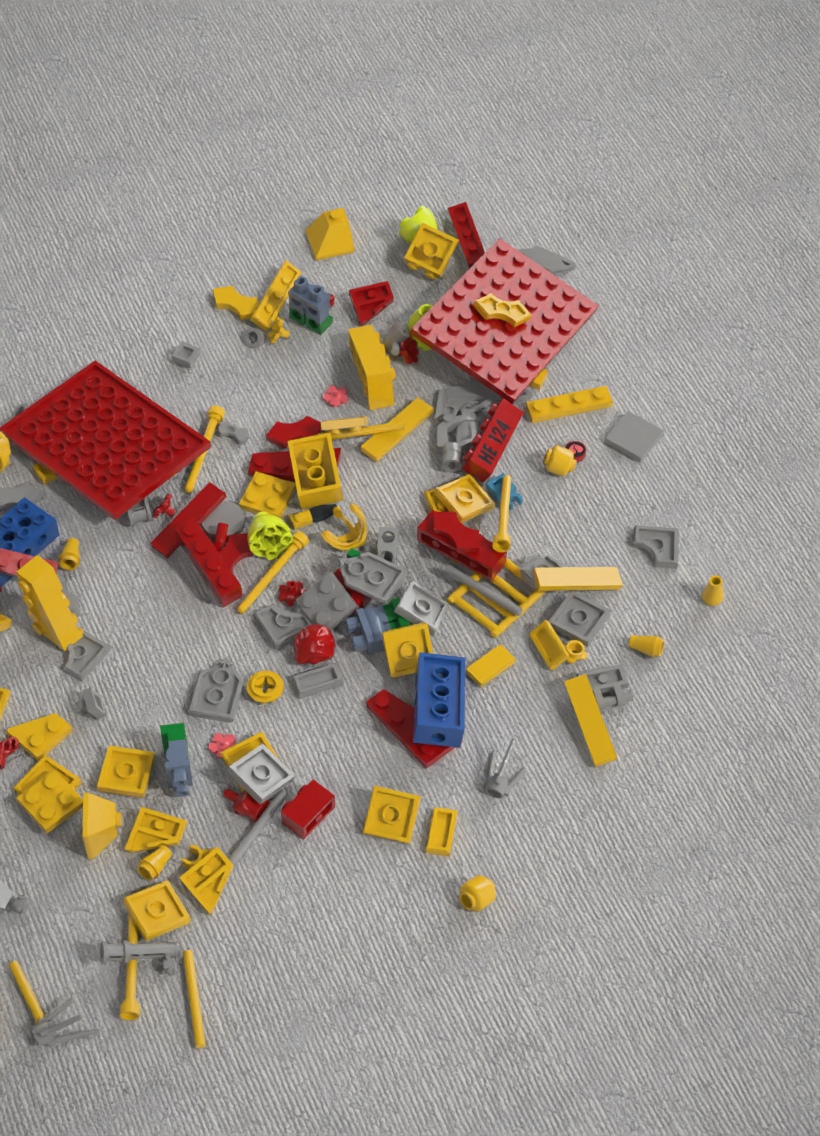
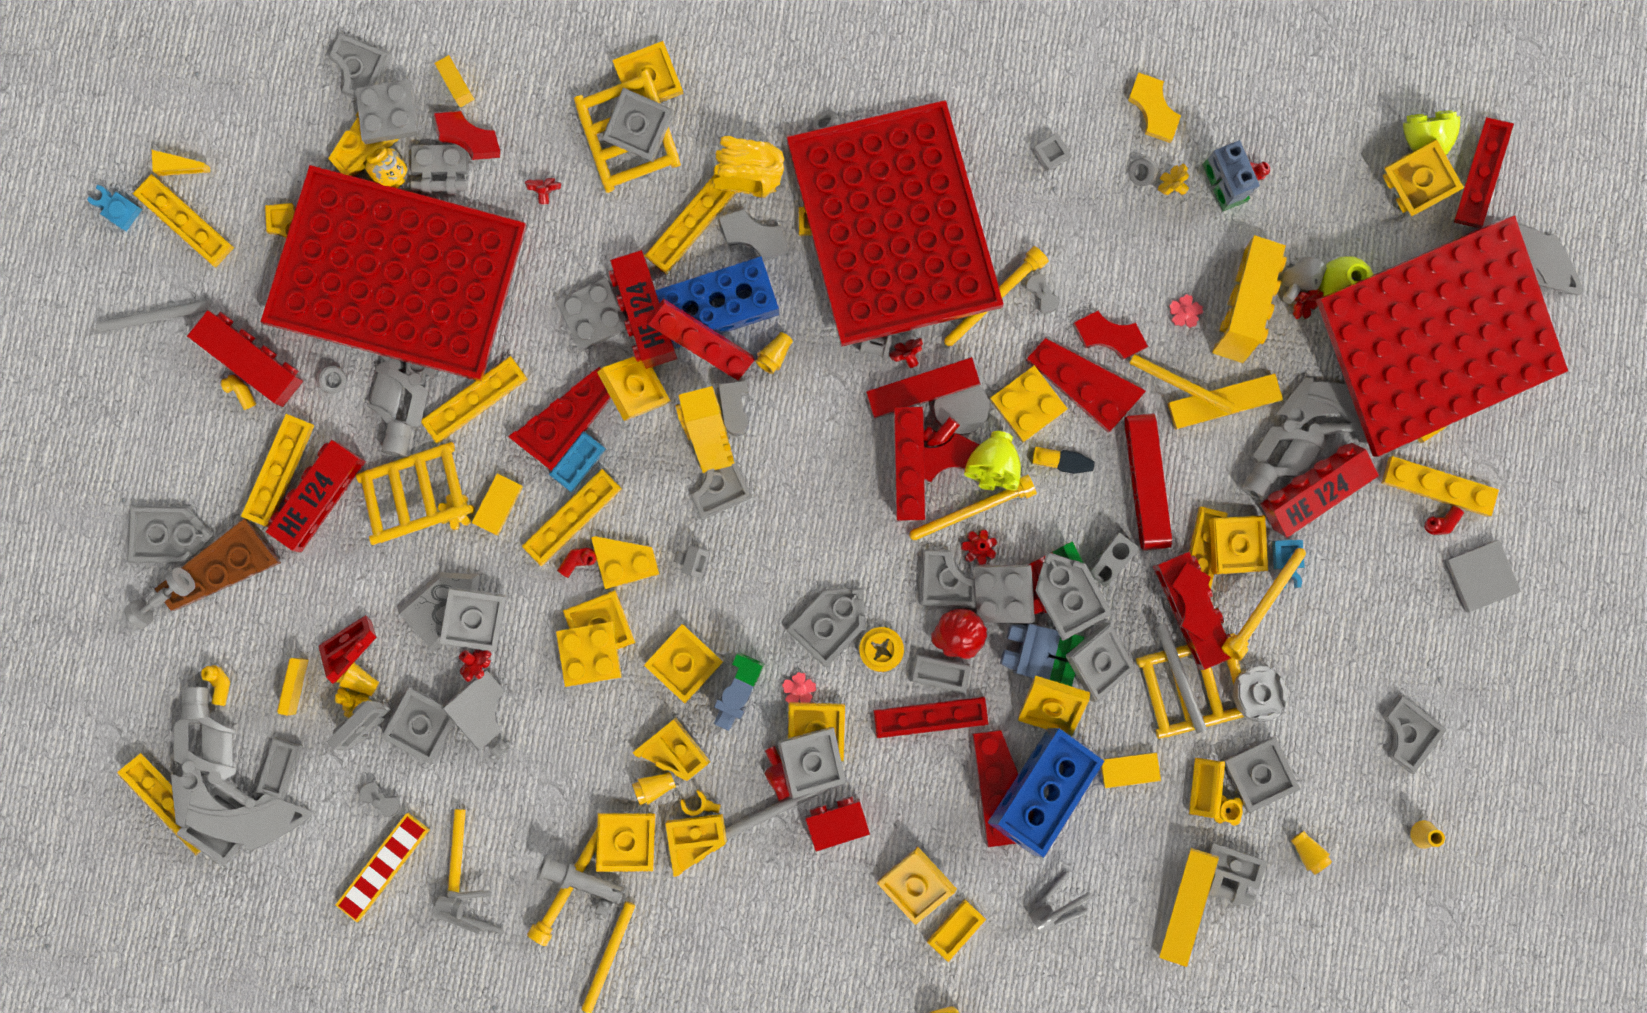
camera: 30 degrees right, 30 degrees up
(99, 823) = (621, 713): yellow slope -> none
(275, 296) = (1204, 127): yellow tile -> none
(315, 470) = (1096, 412): yellow slope -> none
(329, 710) = (930, 717): none -> red tile
(330, 235) = (1322, 74): yellow slope -> none
(353, 424) = (1169, 367): yellow wing -> none
(357, 533) = (1068, 514): yellow helmet -> none
(370, 300) = (1308, 201): red wing -> none
(379, 495) = (1148, 482): none -> red beam
(492, 307) = (1439, 322): yellow tile -> none
(559, 460) = (1375, 561): yellow head -> none
(577, 578) = (1290, 729): yellow tile -> none
(578, 449) = (1402, 555): tile -> none
(588, 422) = (1444, 525): none -> red arm

